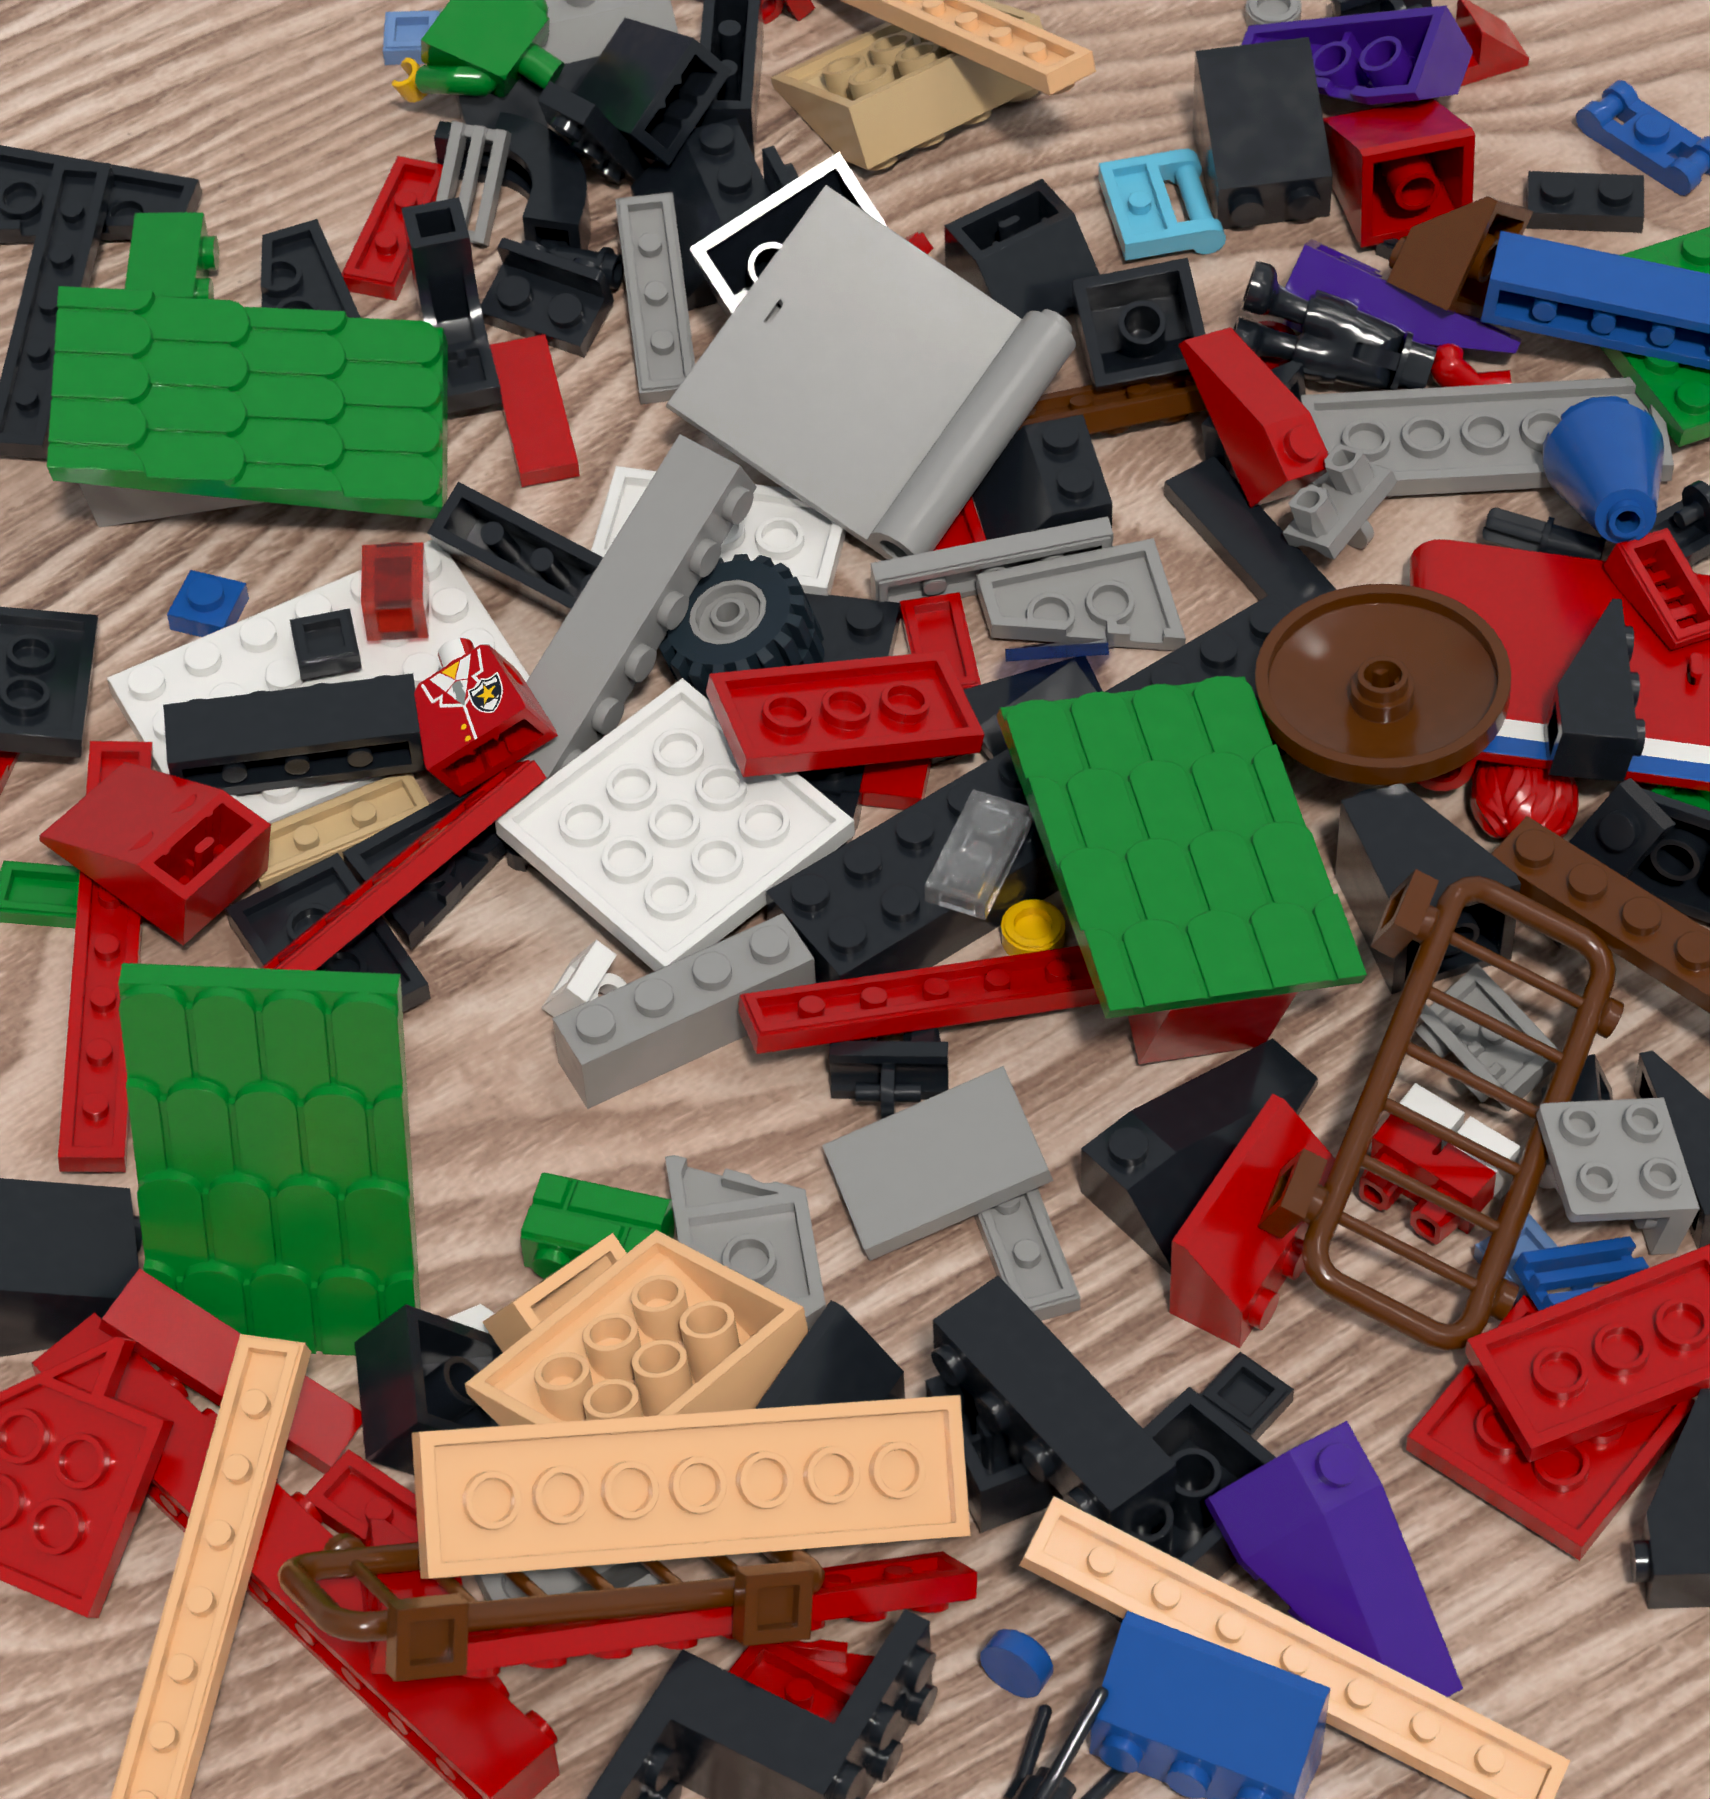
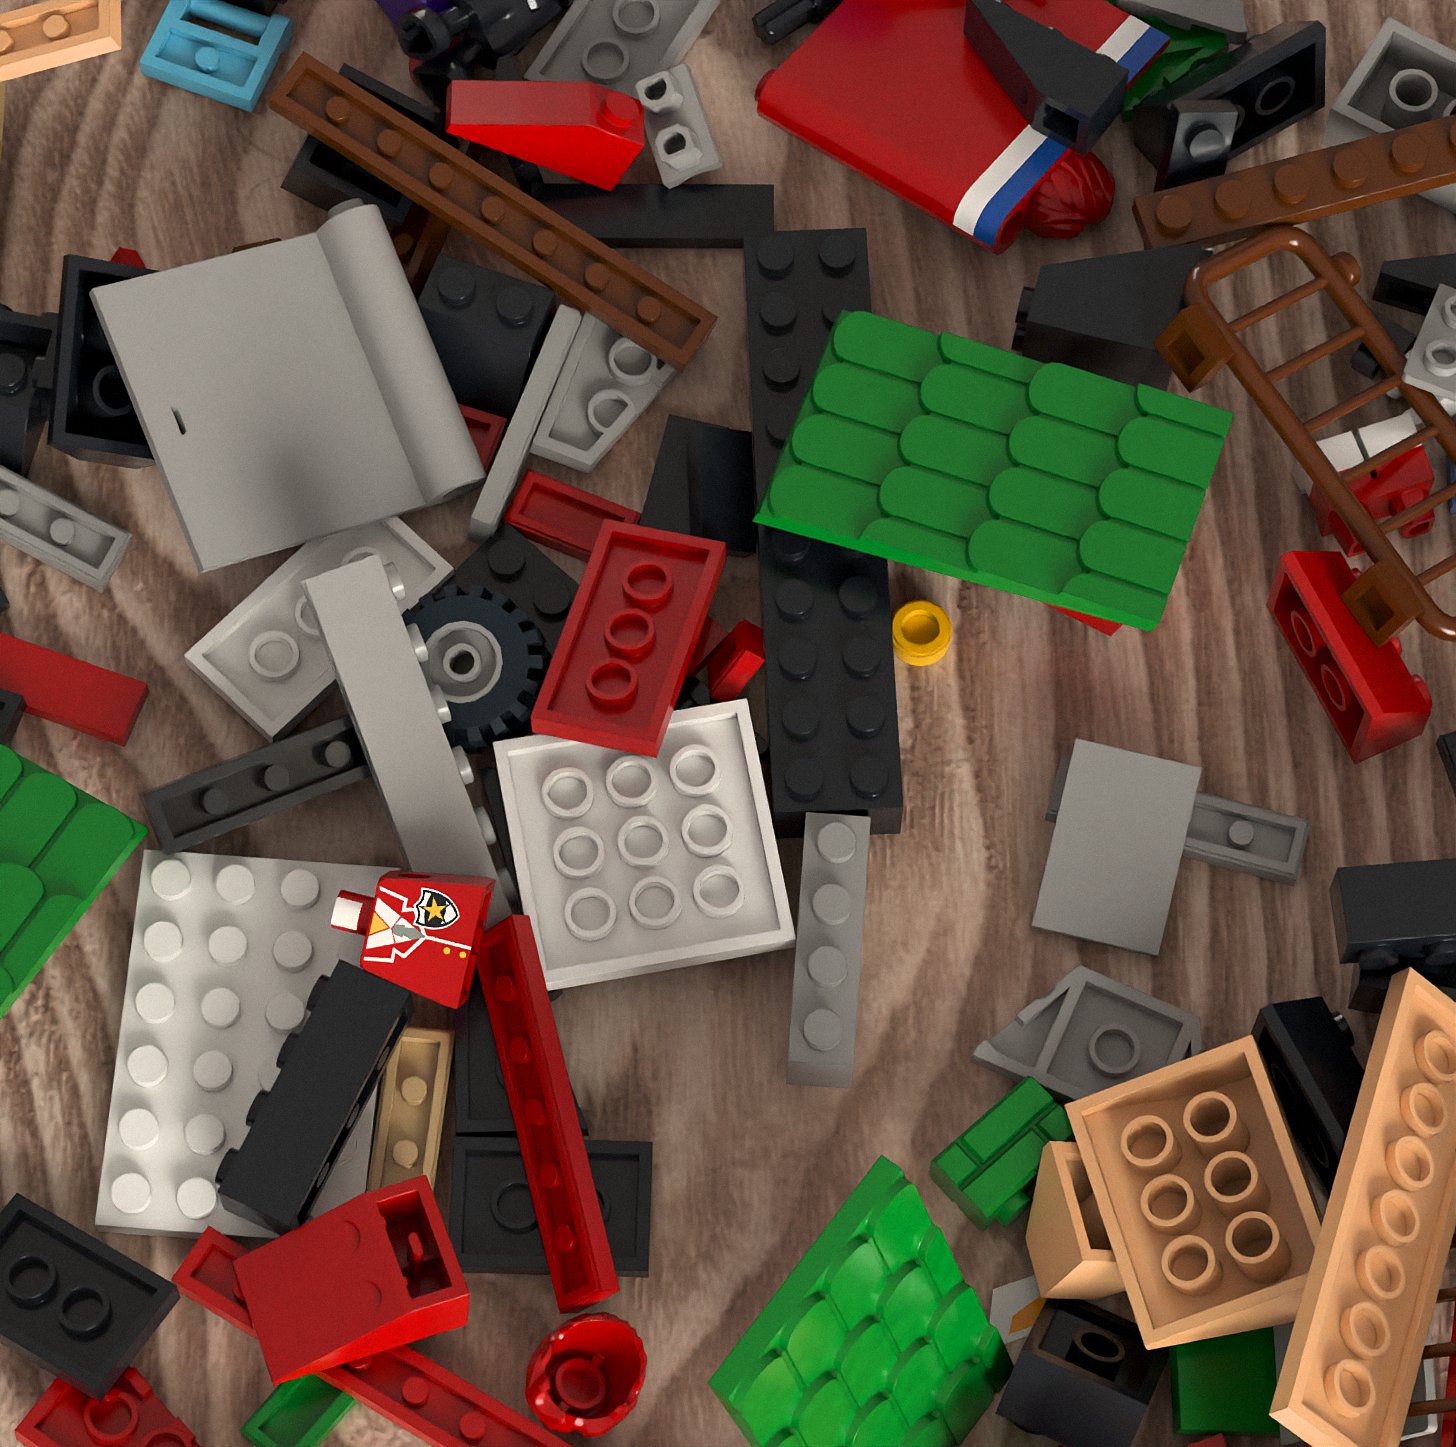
camera: 60 degrees left, 15 degrees up
(207, 604) = (66, 1090): blue plate -> none
(325, 644) = (213, 1014): black tile -> none
(395, 591) = (209, 919): clear red brick -> none
(583, 980) = (736, 1016): white tile -> none
(881, 806) = (735, 661): none -> red tile
(890, 1069) = (1007, 805): black hips -> none
(916, 999) = (957, 754): red tile -> none
(978, 854) = (870, 623): clear plate -> none
(1021, 250) = (209, 188): black slope -> none
(1059, 650) = (667, 429): clear blue piece -> none
(1142, 426) = (492, 212): none -> reddish brown plate
(1167, 1152) = (1232, 656): black wedge -> none
(1383, 684) = (929, 213): reddish brown dish -> none
(1481, 1049) = (1271, 347): light grey bracket -> none

